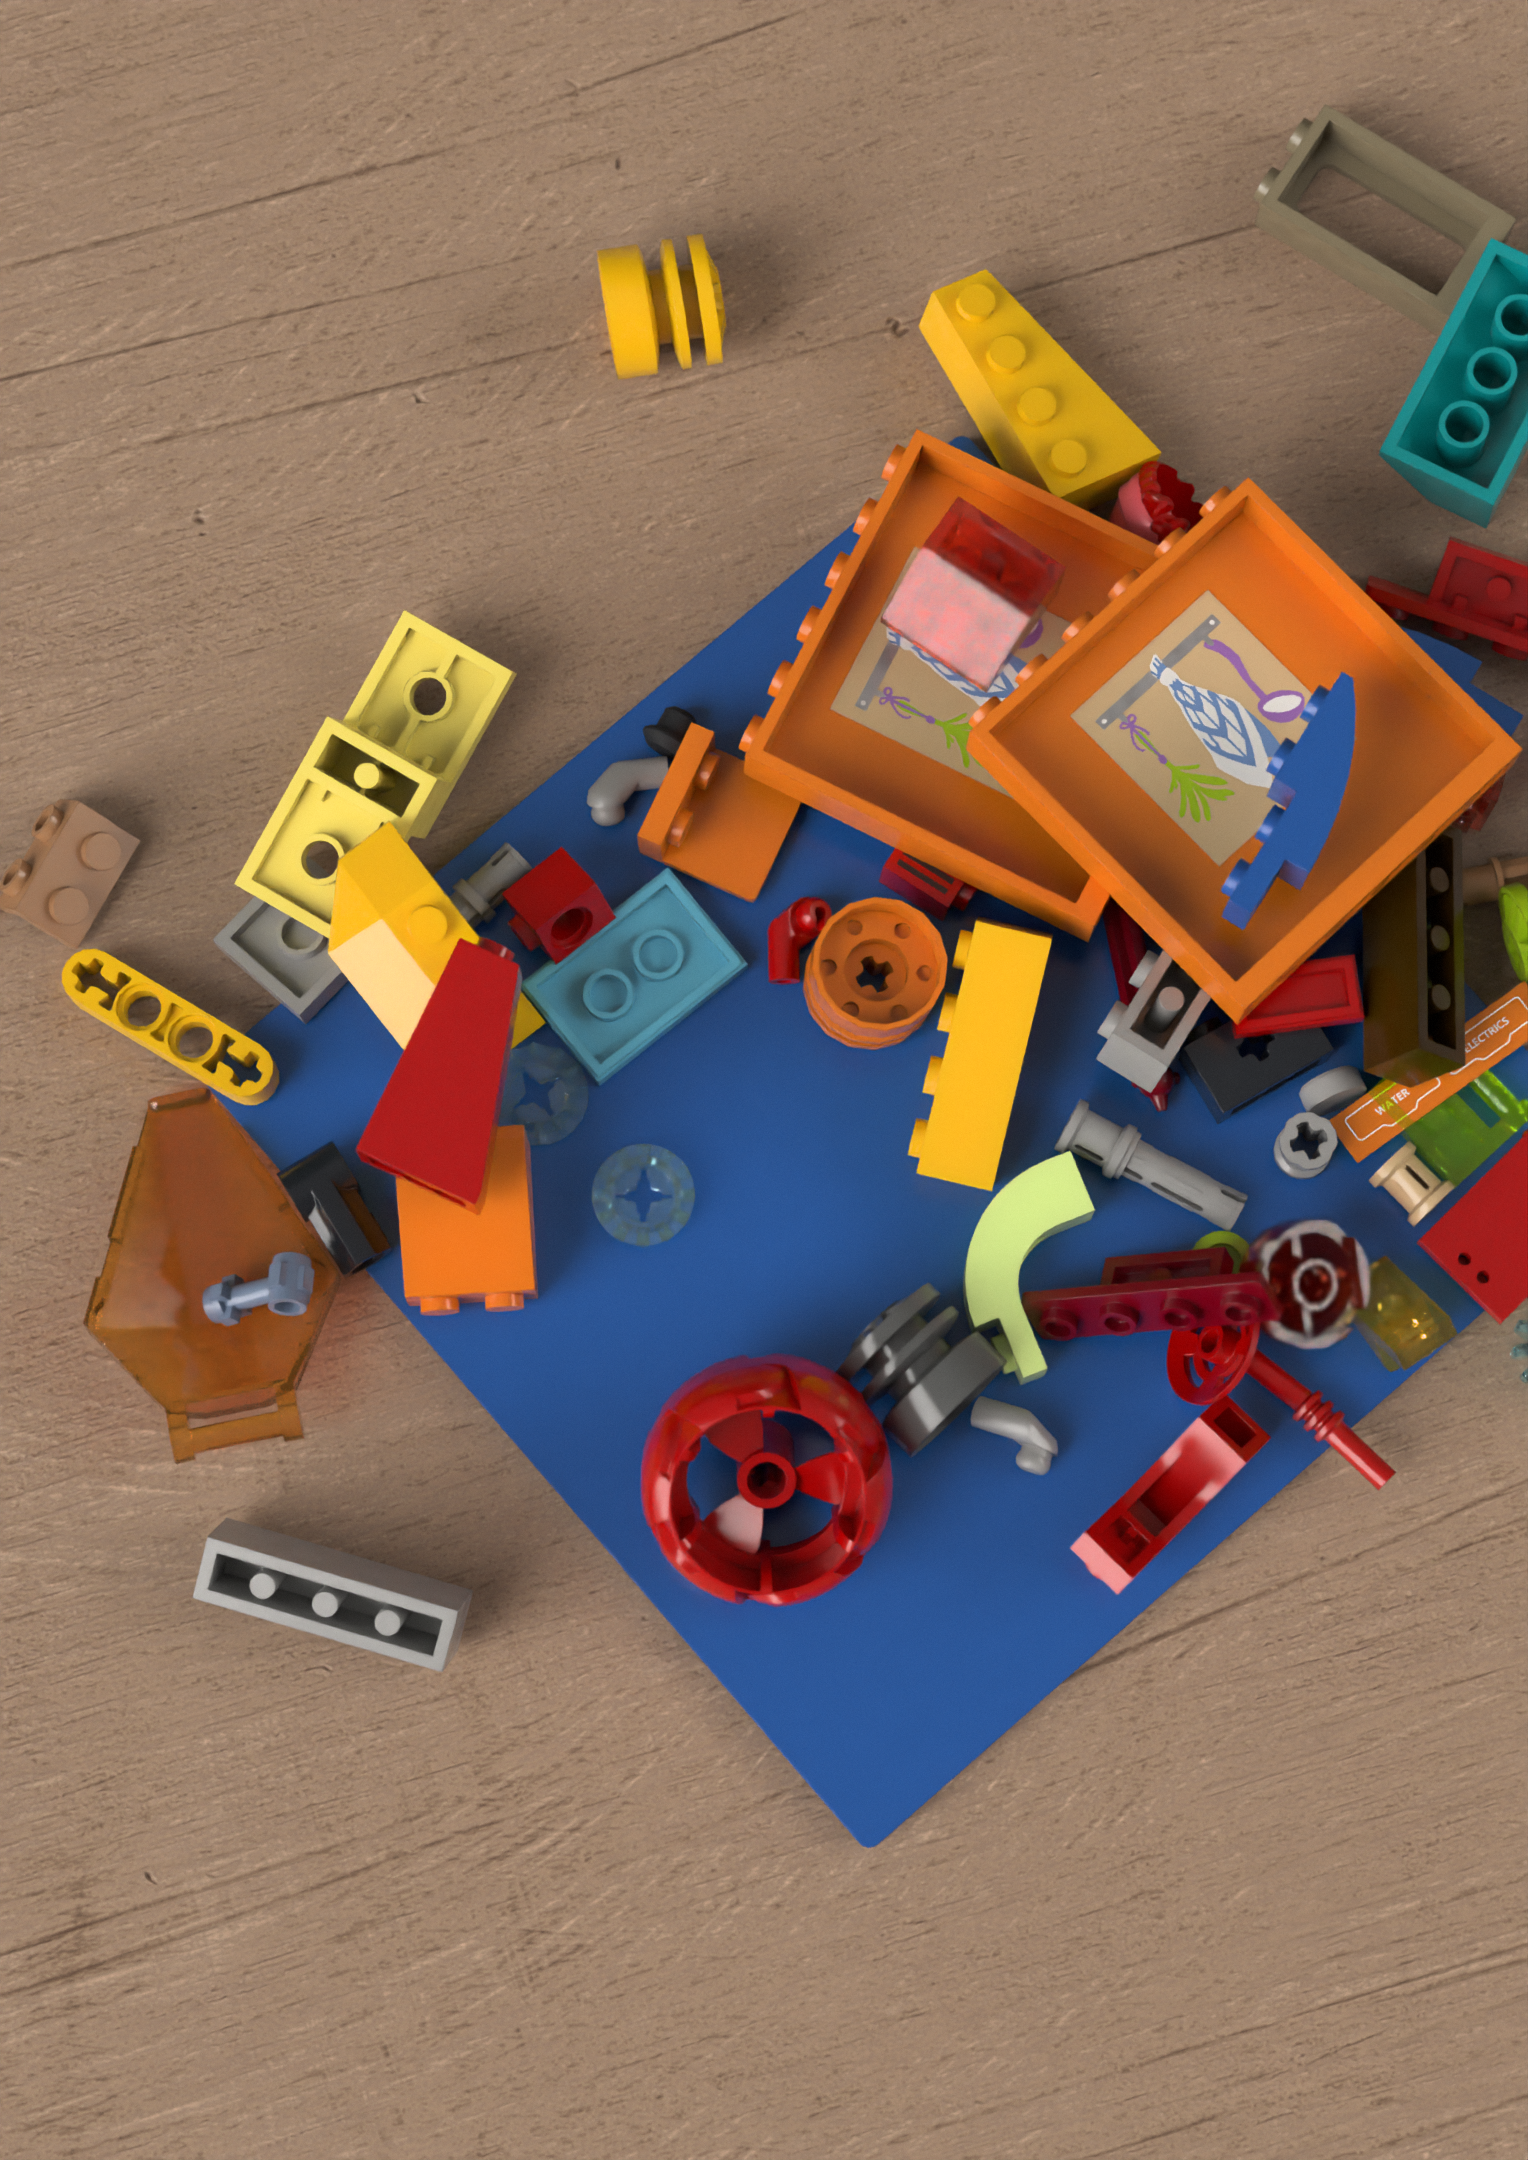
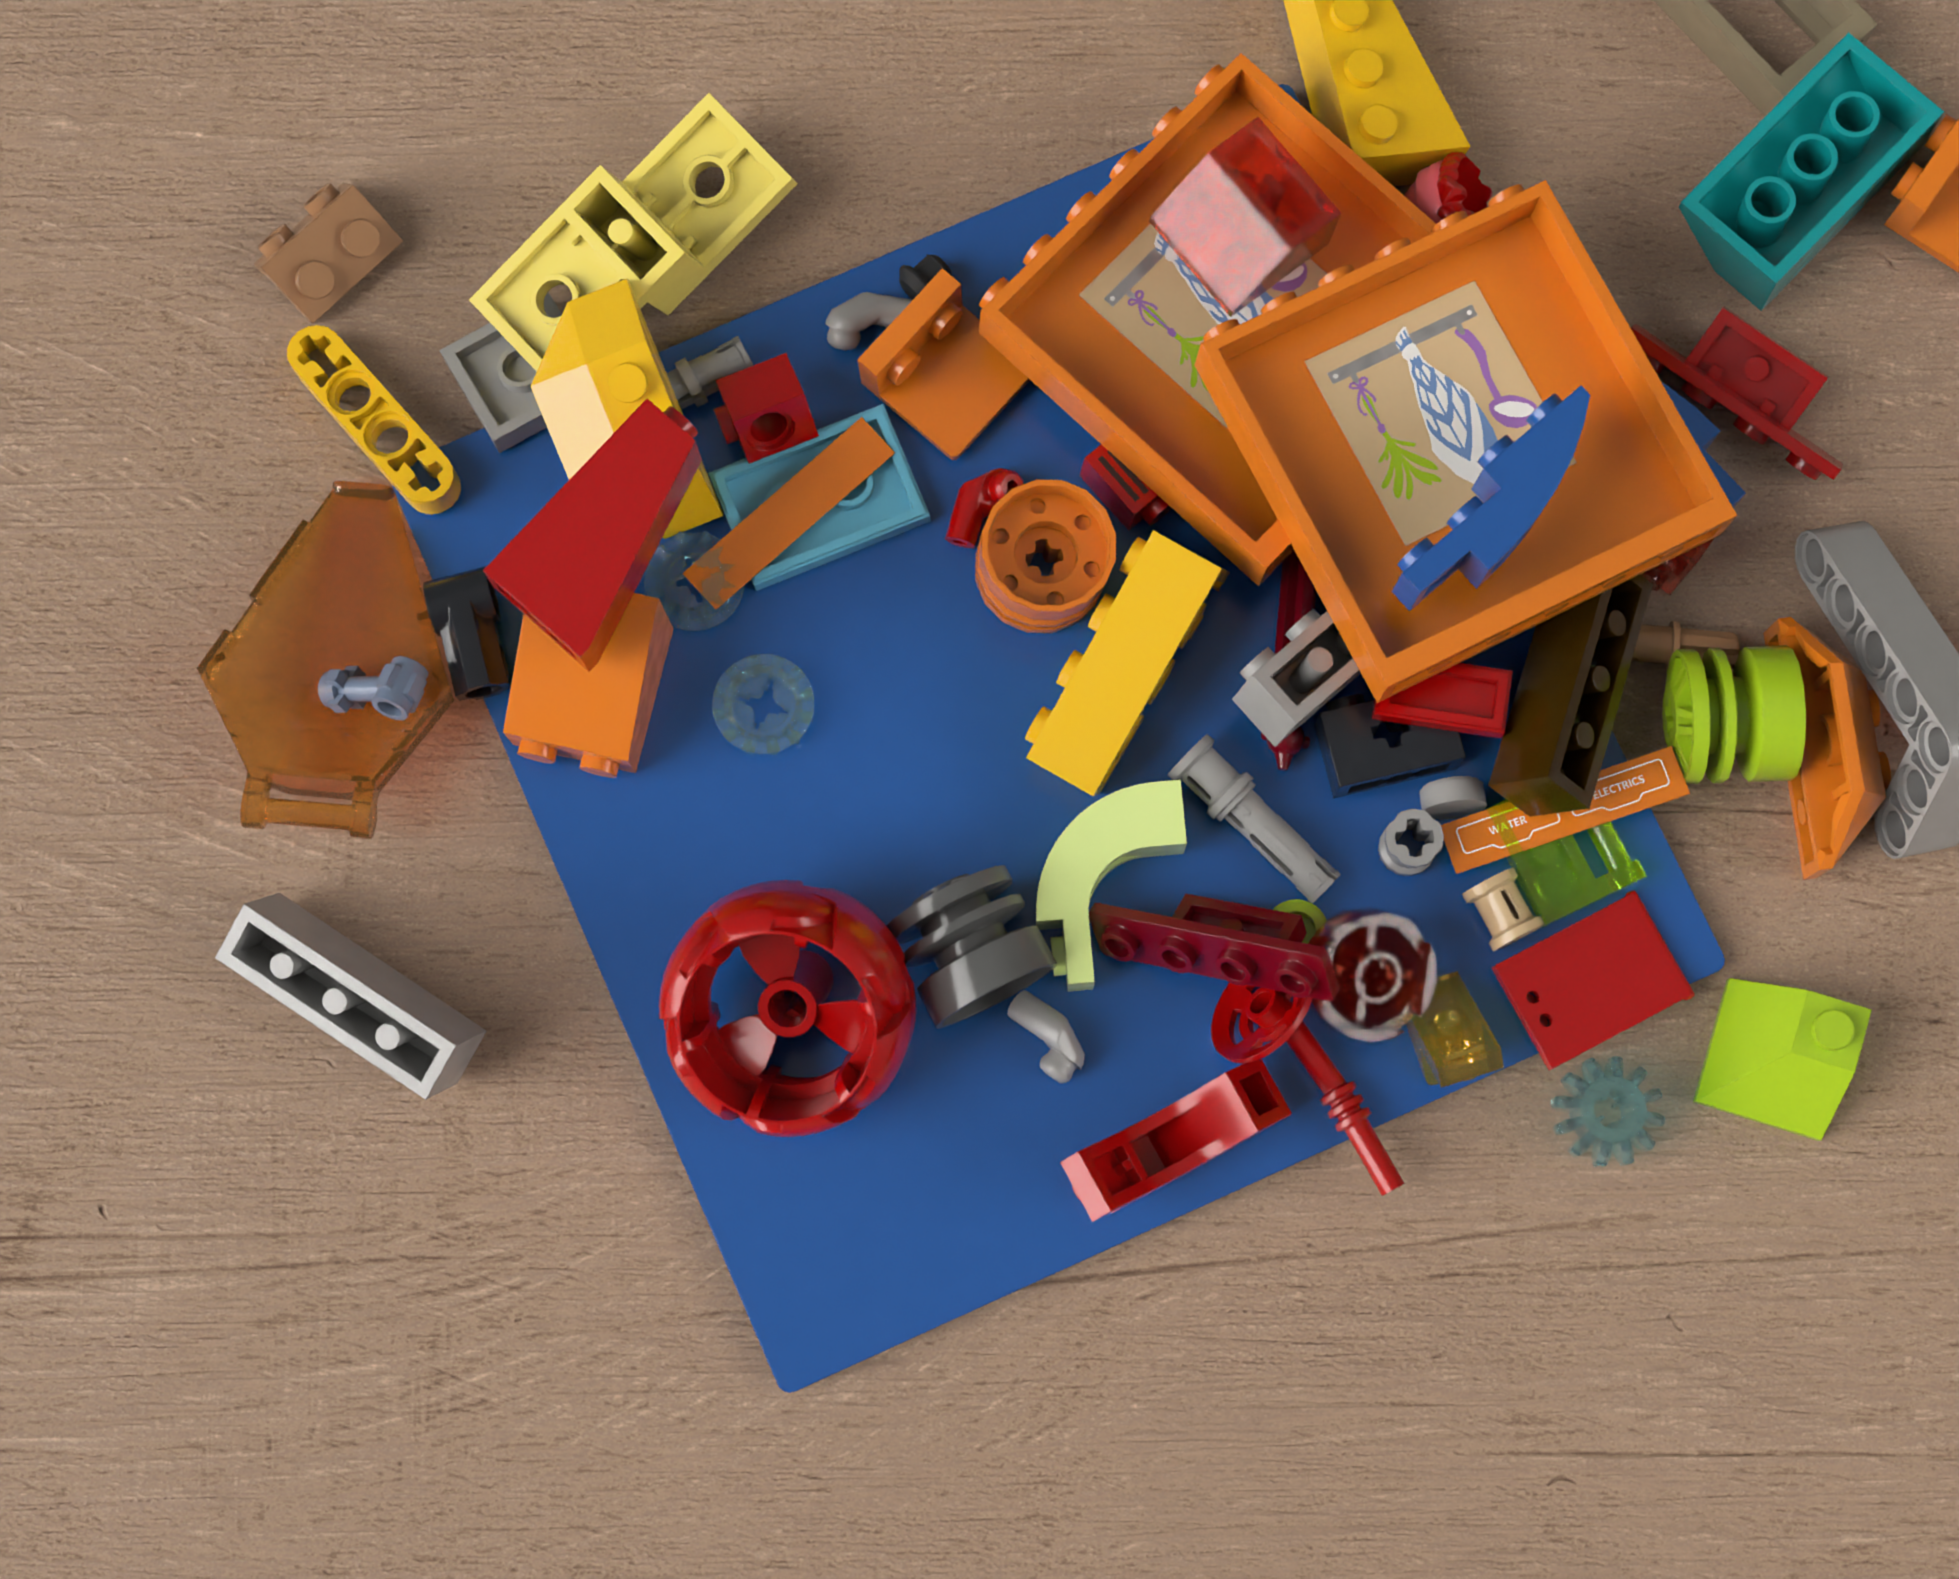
camera: 20 degrees right, 0 degrees up
(615, 993) = (795, 507): none -> orange sticker

